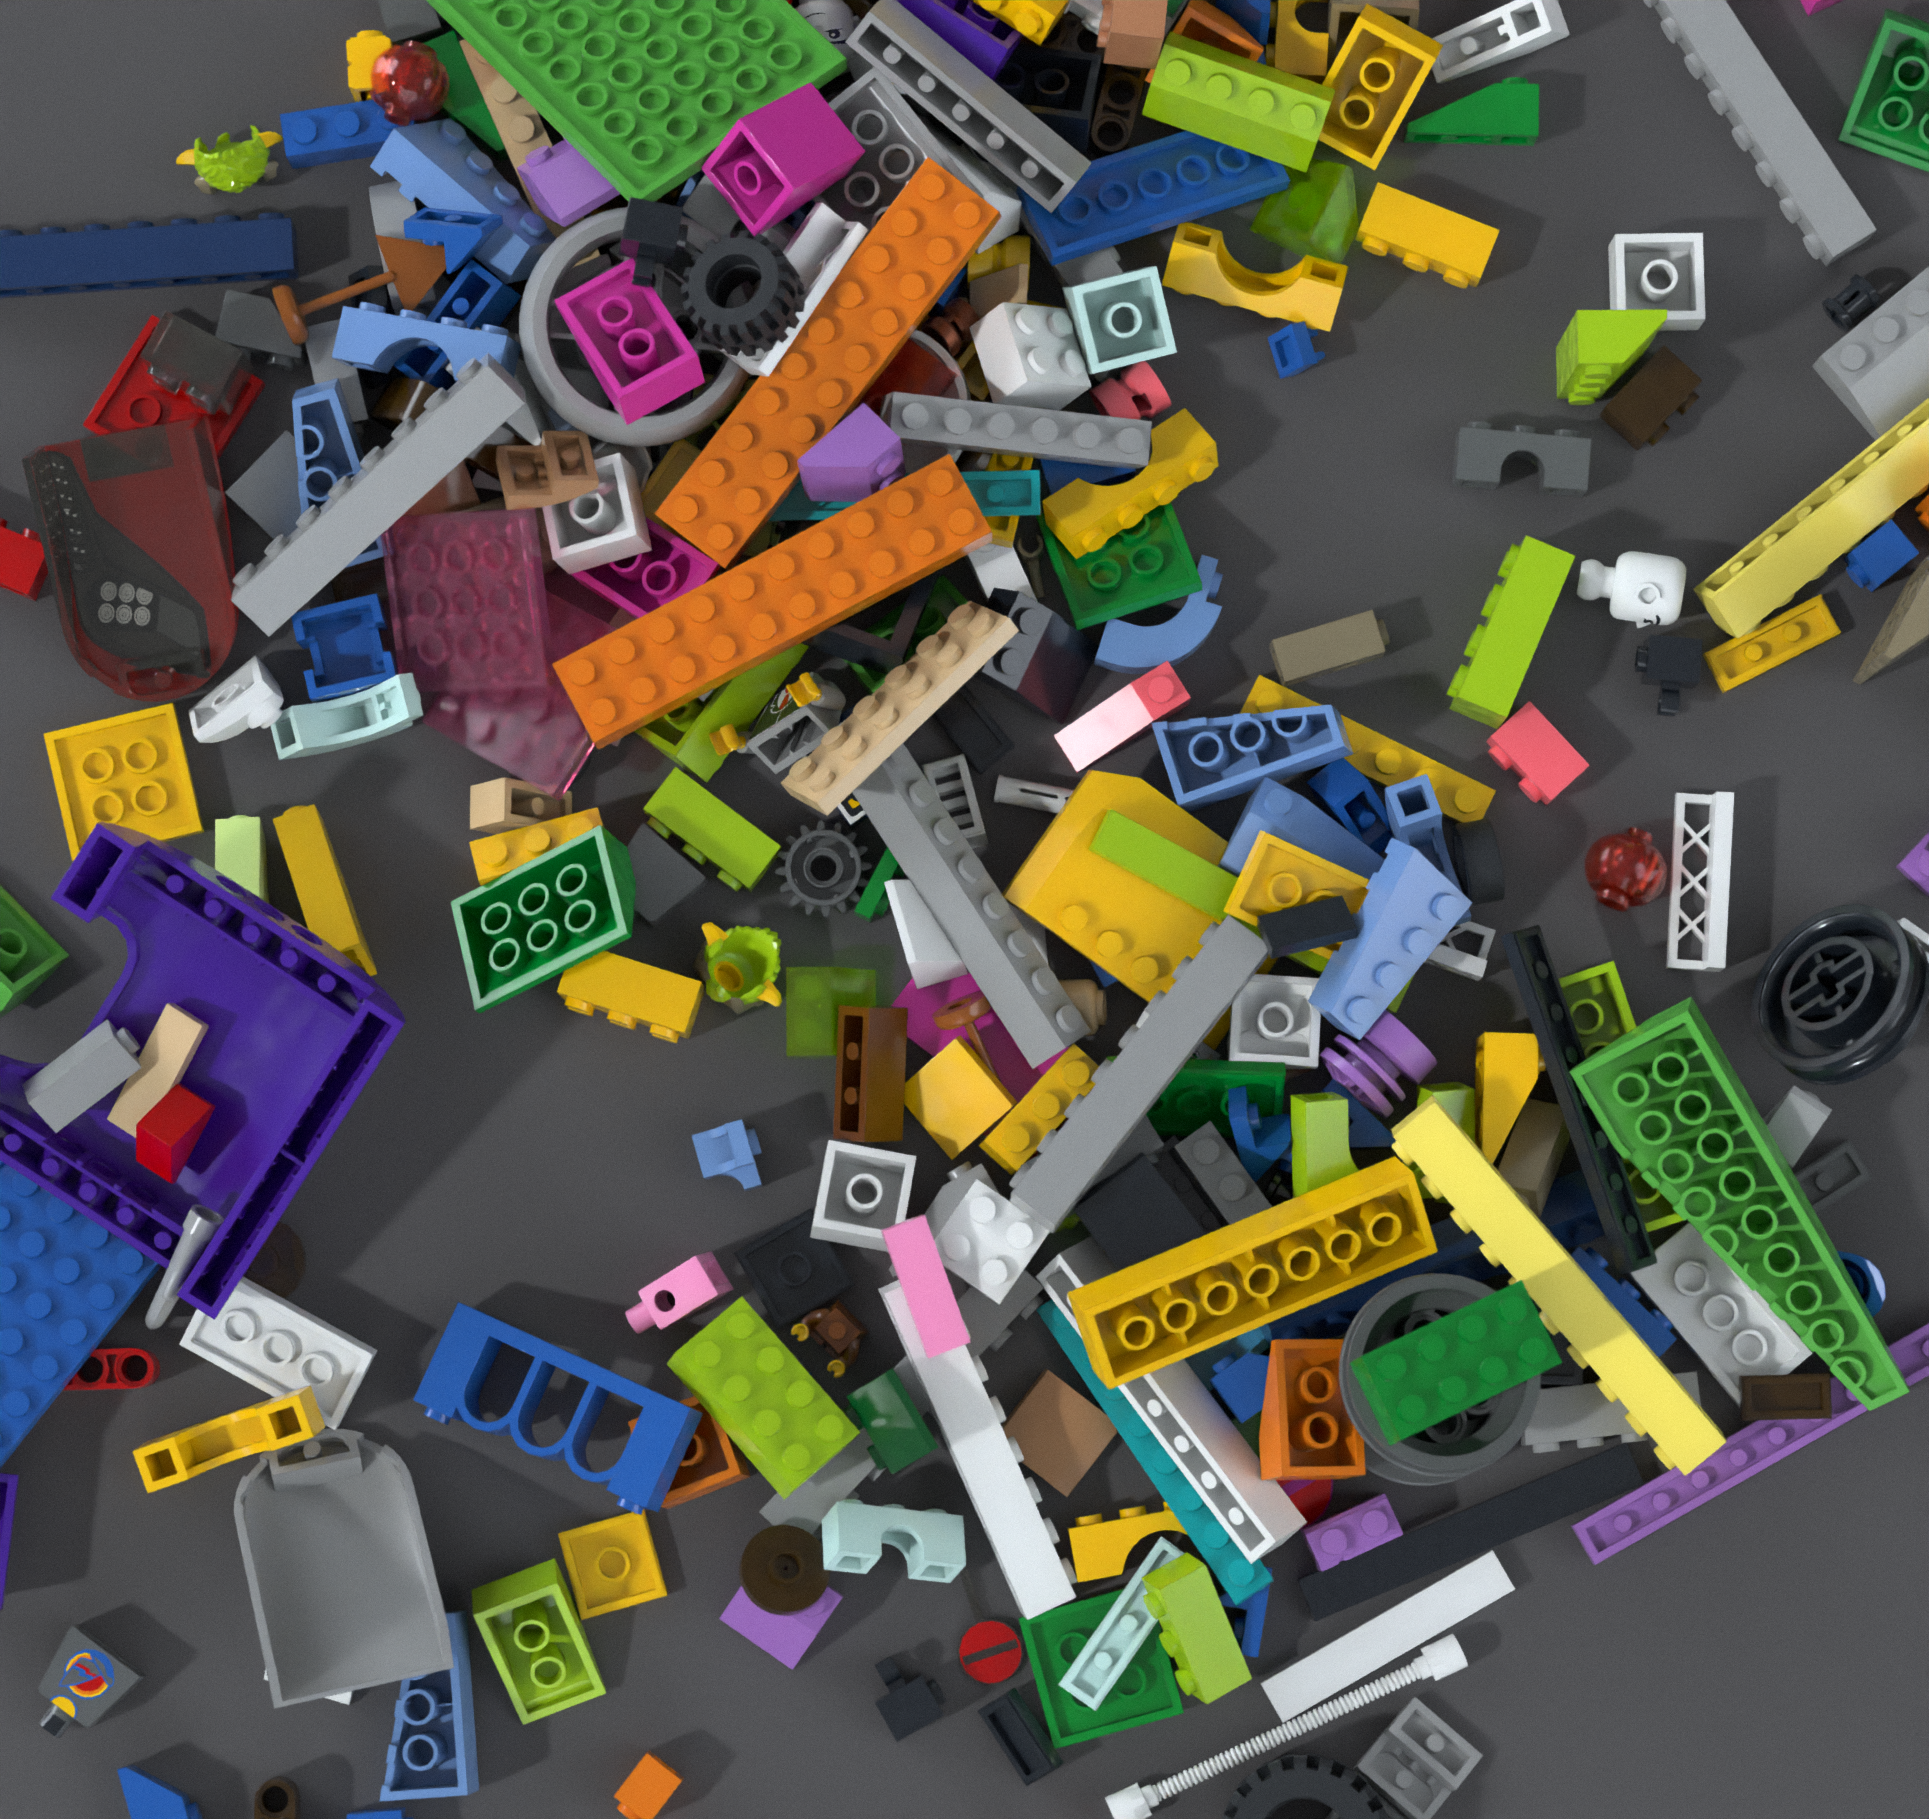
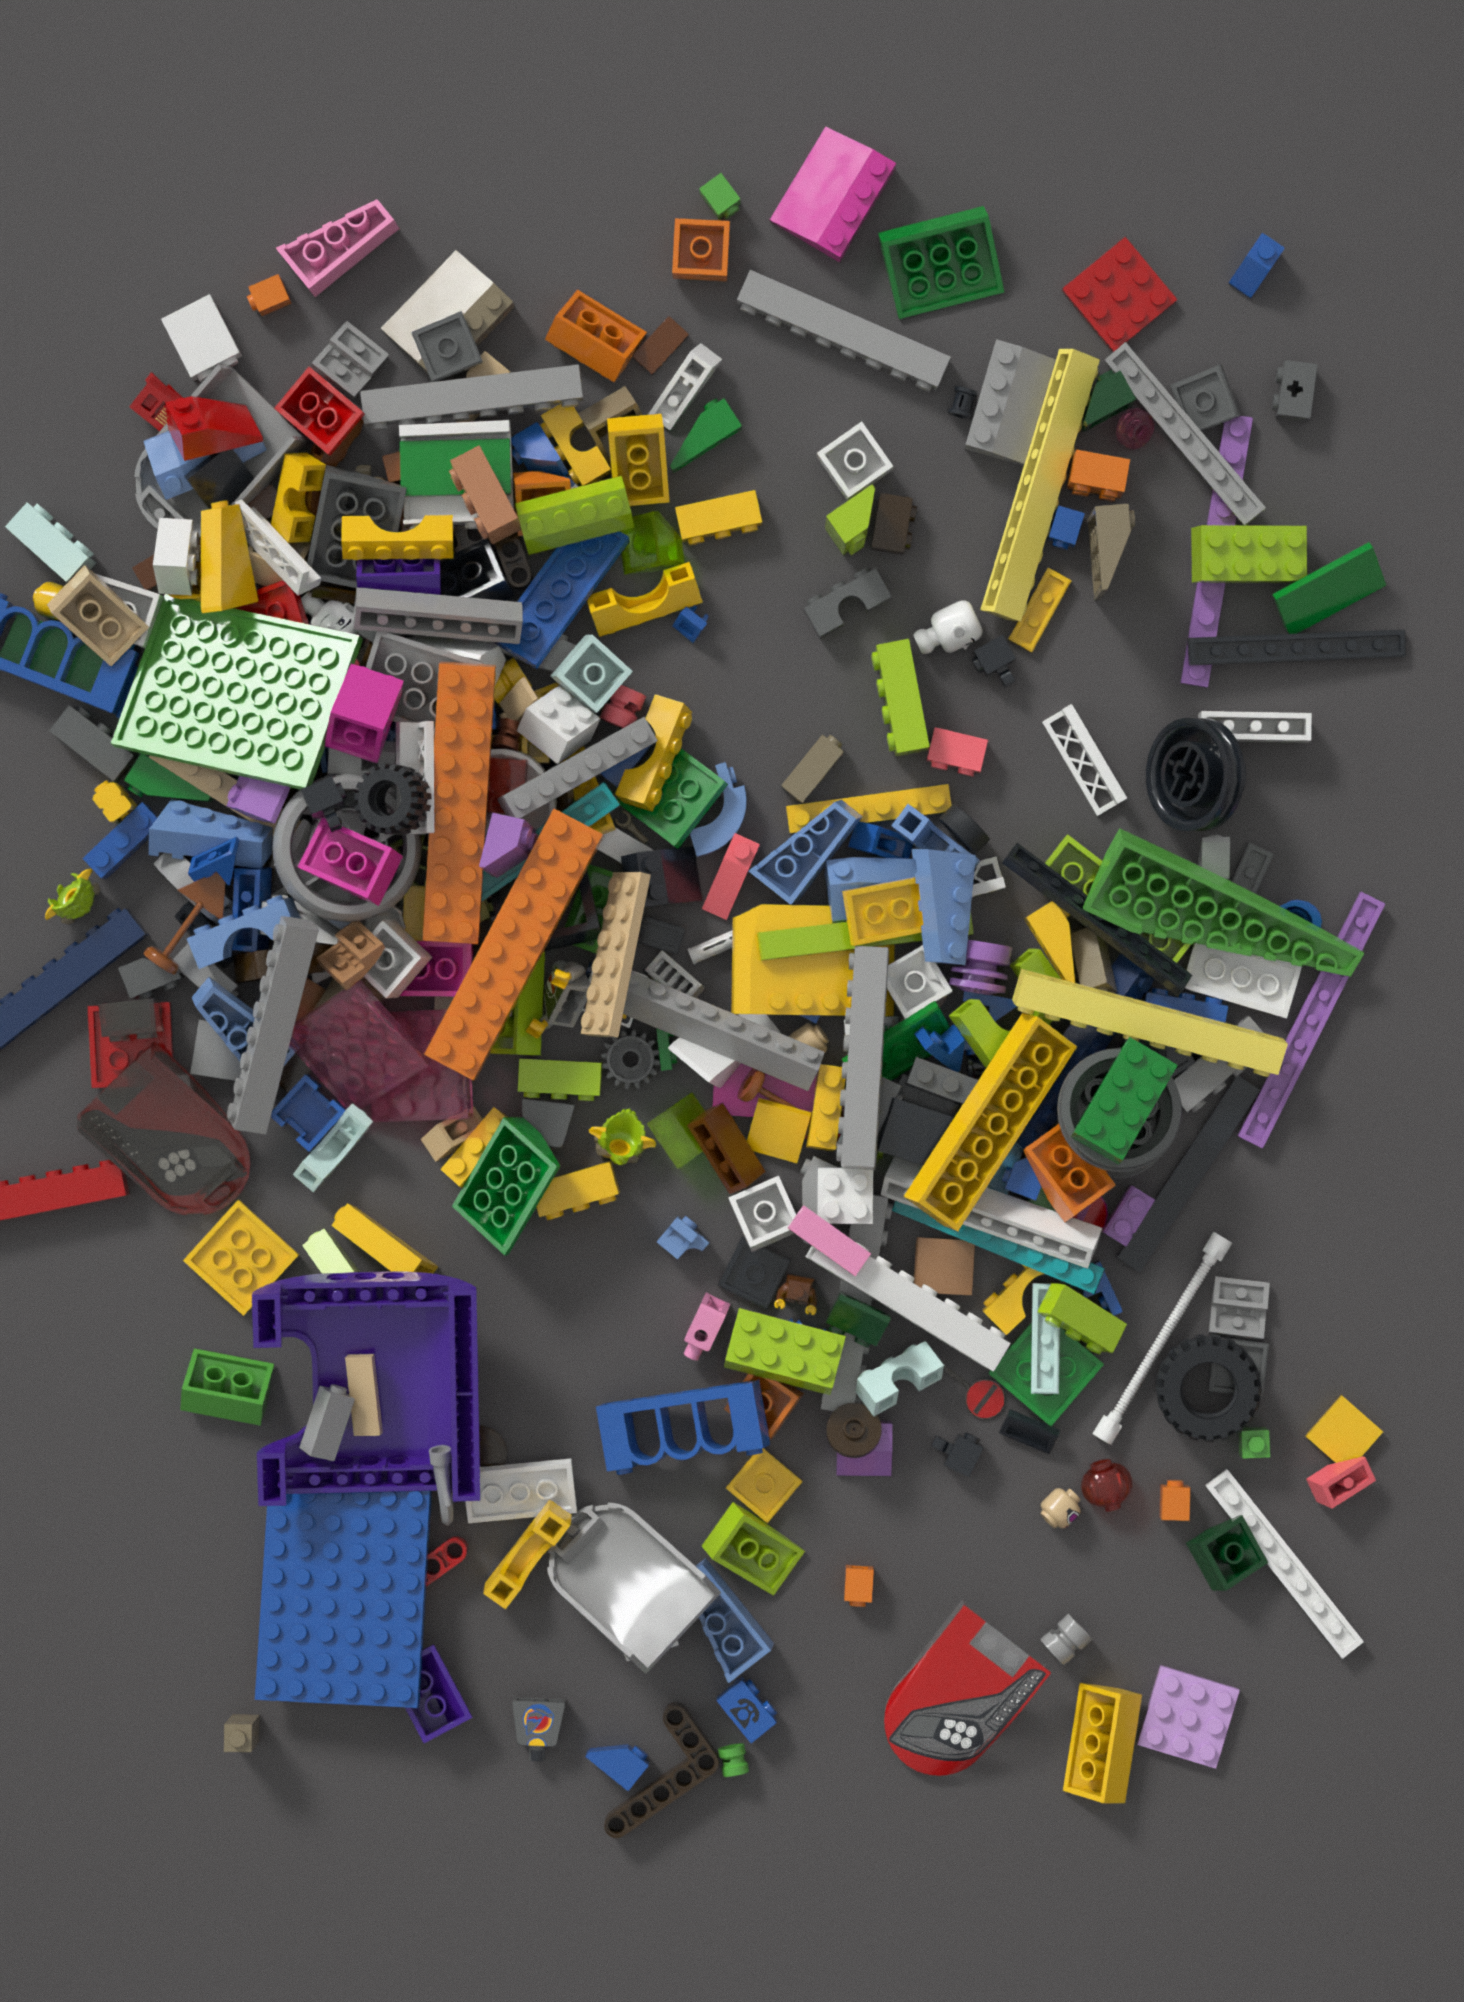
camera: 30 degrees left, 5 degrees up
(171, 1131) = (391, 1420): red slope -> none
(240, 702) = (272, 1177): white slope -> none
(409, 83) = (139, 798): clear red plant -> none
(1306, 927) = (899, 925): black tile -> none
(1387, 1636) = (1181, 1255): white tile -> none
(1625, 869) = (1042, 780): clear red plant -> none
(1785, 1397) = (1303, 998): dark brown tile -> none

